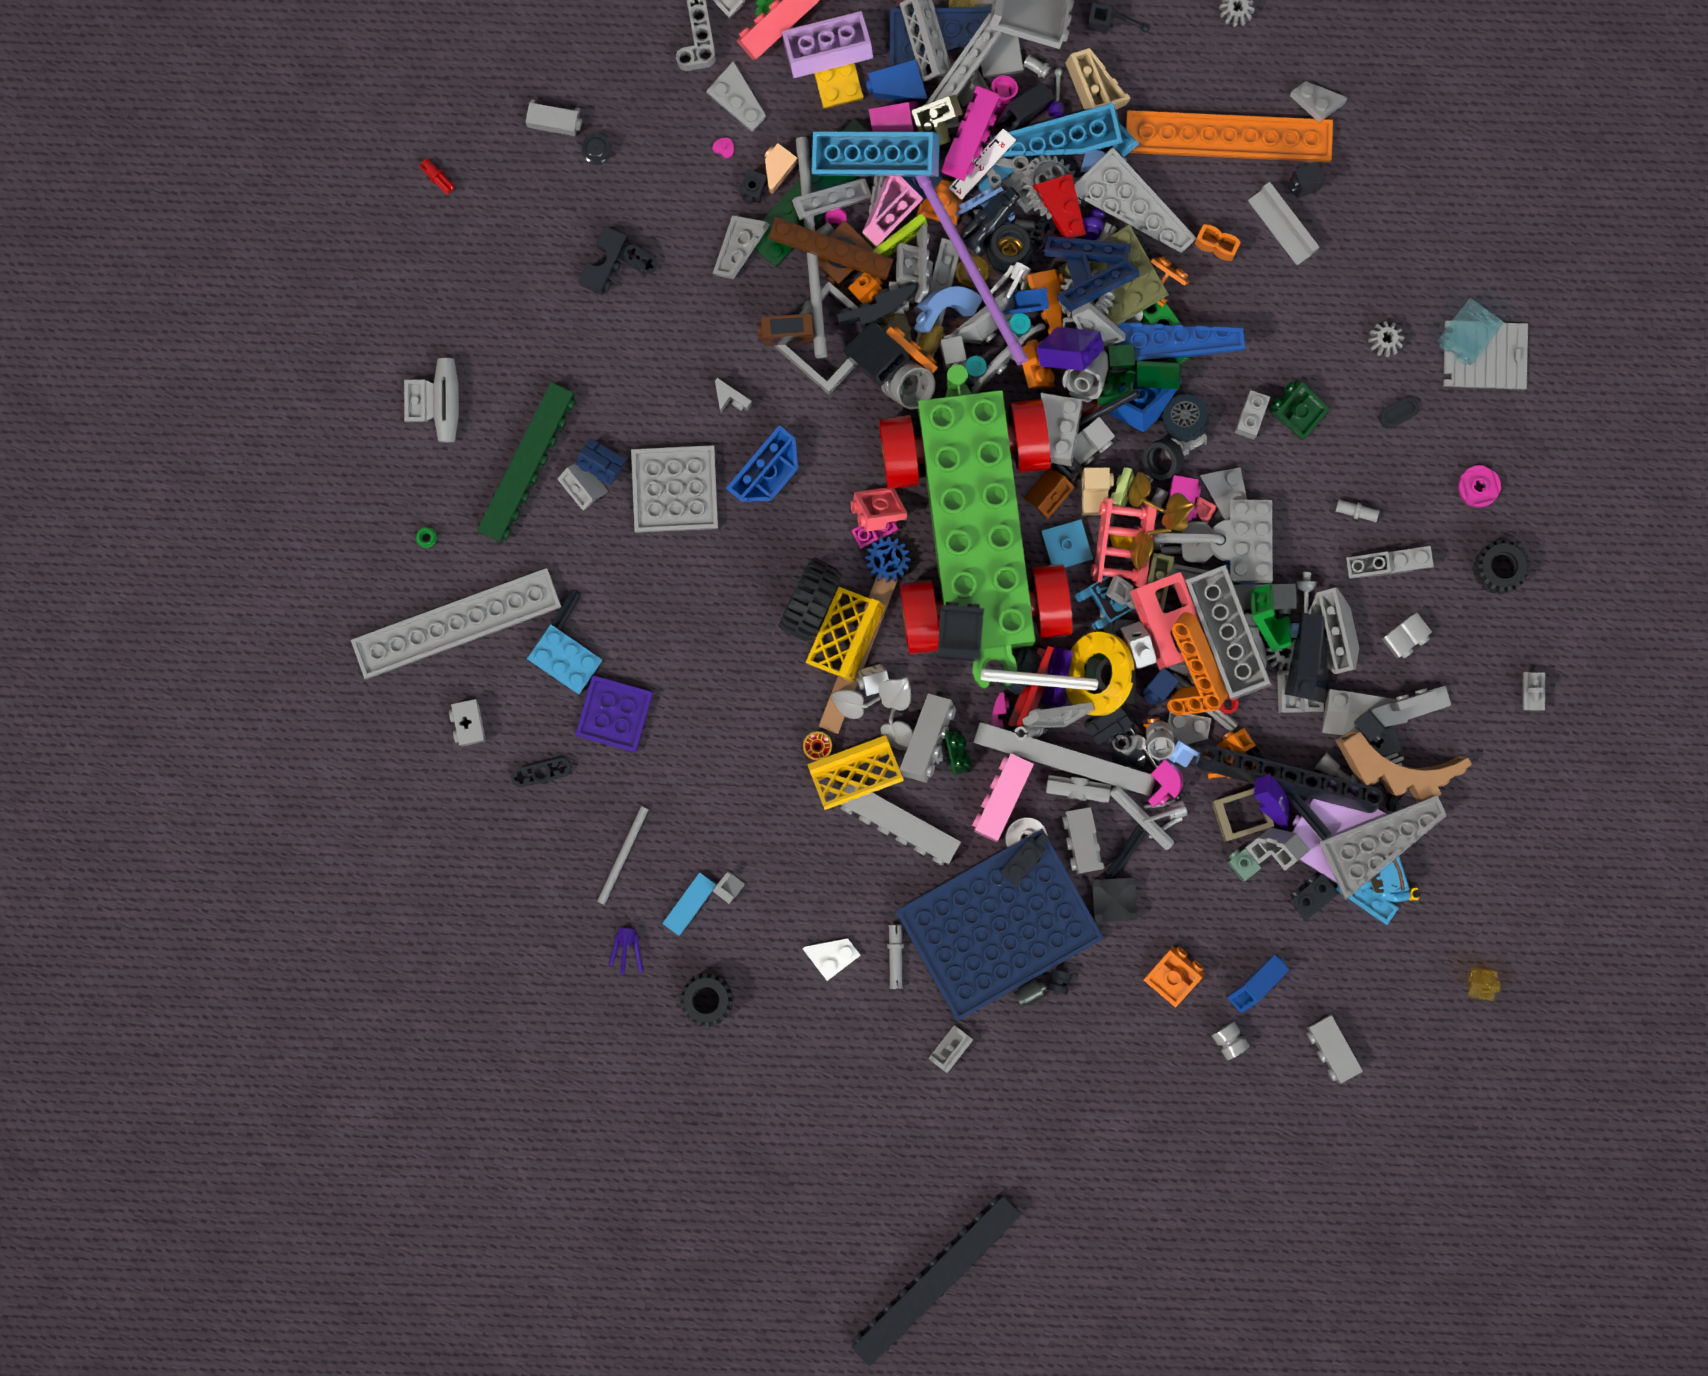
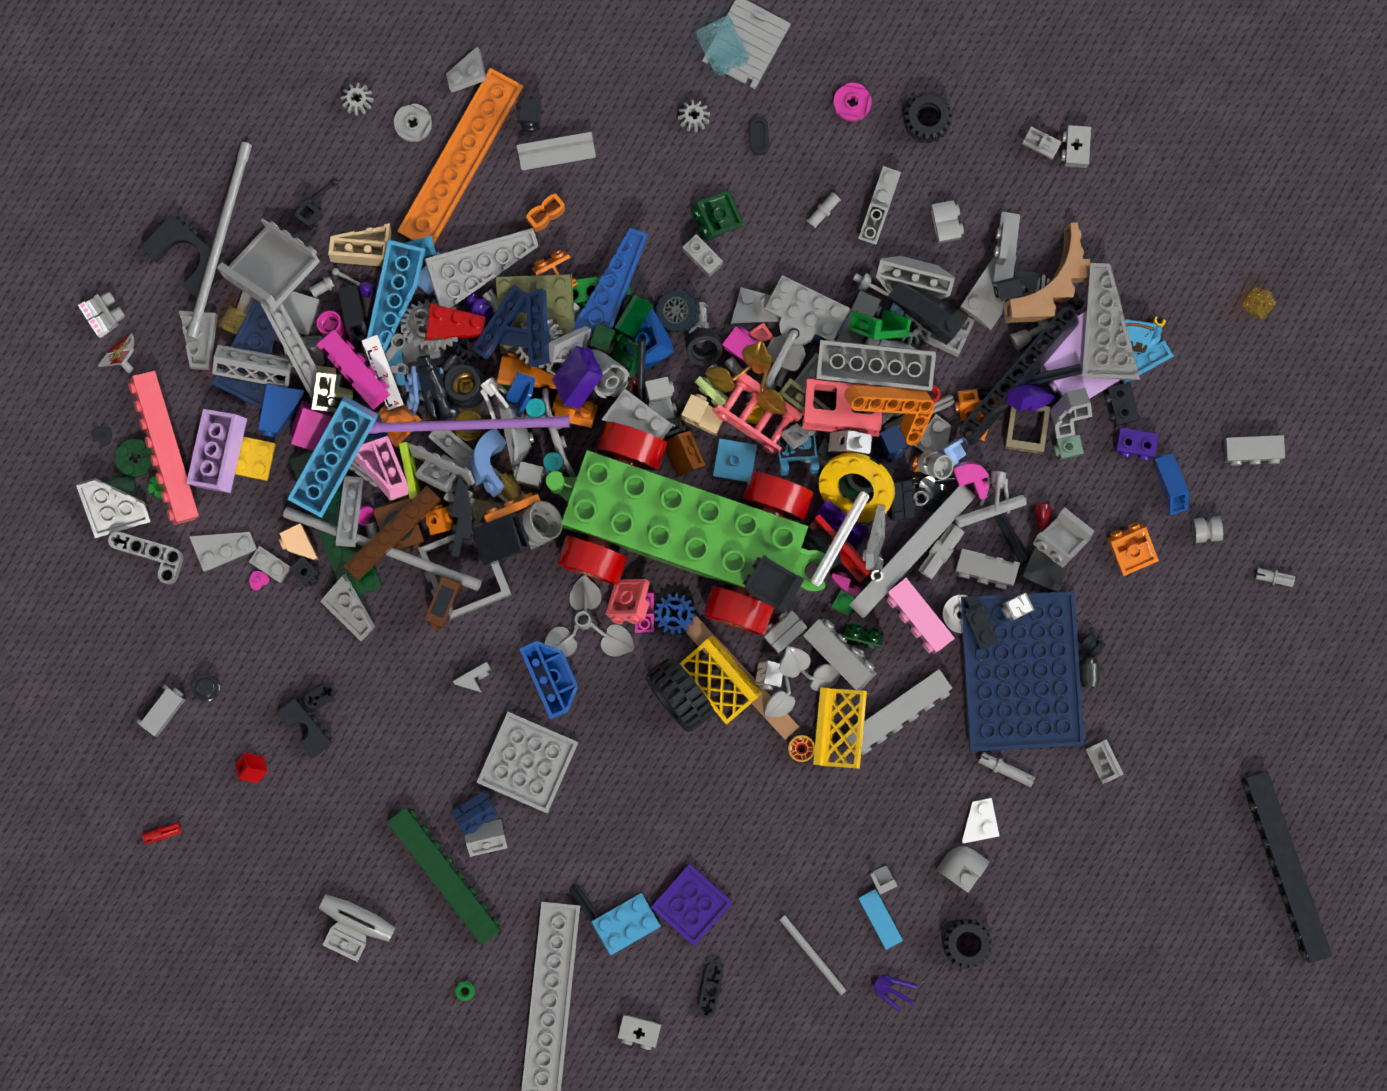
camera: 65 degrees left, 0 degrees up
(540, 229) = (251, 767): none -> red panel
(744, 150) = (270, 564): none -> light grey plate
(779, 959) = (963, 866): none -> light grey brick
(864, 468) = (588, 596): none -> light grey plant
(924, 674) = (784, 631): none -> light grey brick
(979, 716) = (842, 603): none -> green plate
(1059, 888) = (1017, 607): none -> brick
(1150, 902) = (1064, 537): none -> light grey panel
(1163, 871) = (1042, 515): none -> dark red cone
(1217, 1132) = (1275, 577): none -> light grey axle
(1232, 65) = (408, 113): none -> light grey plate
(1281, 929) = (1136, 443): none -> dark purple brick
(1560, 727) = (1081, 136): none -> light grey brick

